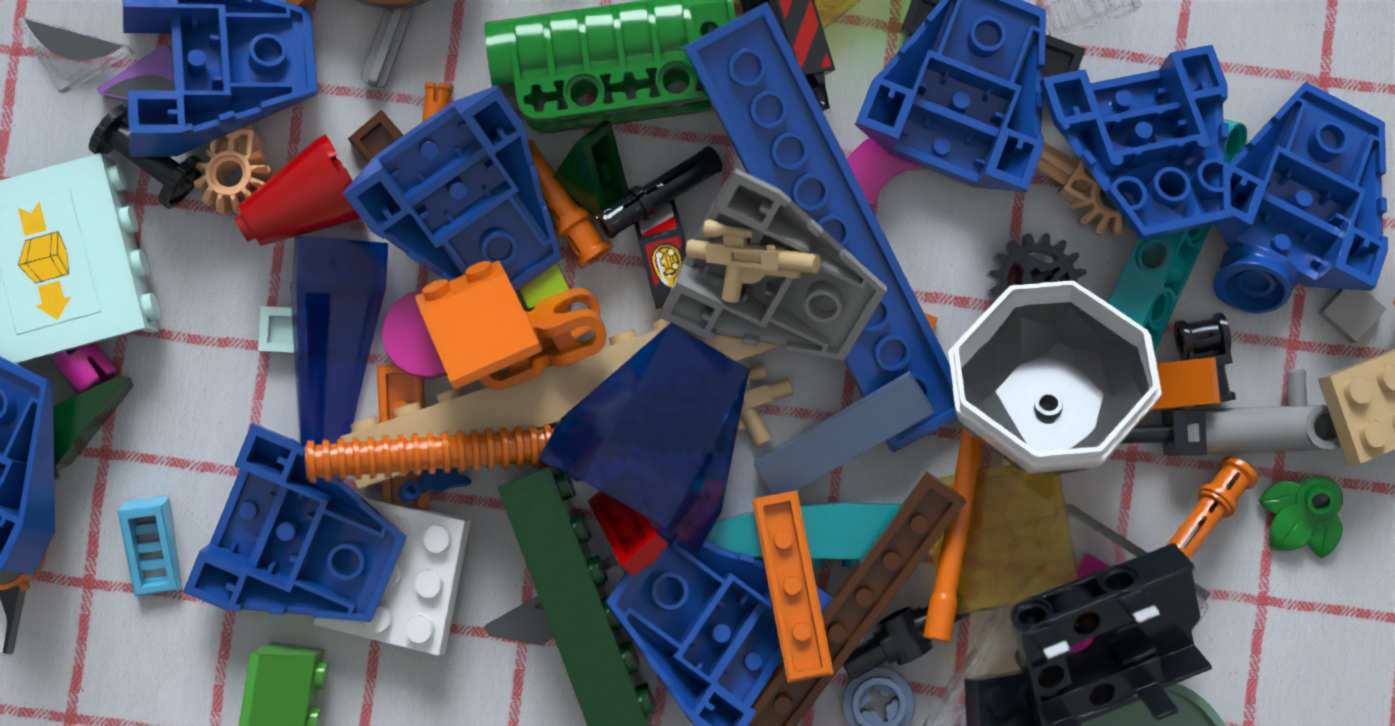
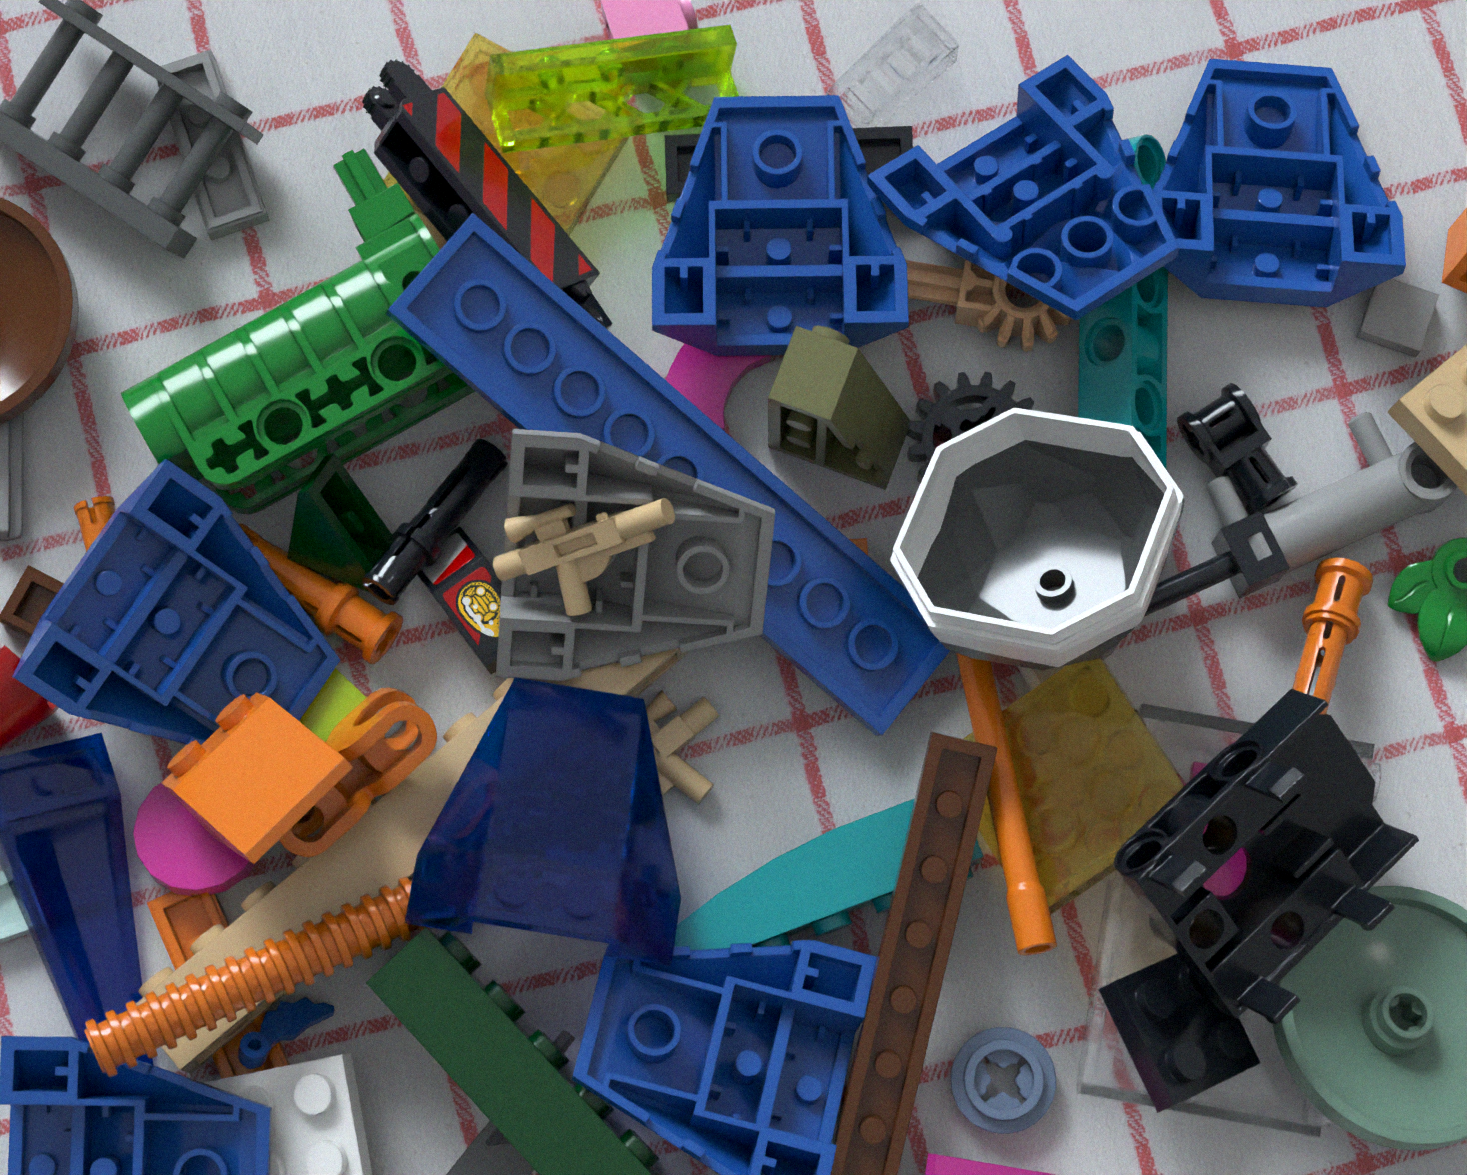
camera: 15 degrees left, 10 degrees down
(631, 536) = (565, 971): red plate -> none
(792, 586) = (817, 960): orange tile -> none
(844, 435) = (805, 739): sand blue tile -> none
(896, 640) = (989, 984): black pin -> none
(954, 227) = (835, 408): none -> olive wedge
(1188, 383) = (1218, 493): orange tile -> none
(1255, 279) = (1253, 323): blue piece -> none

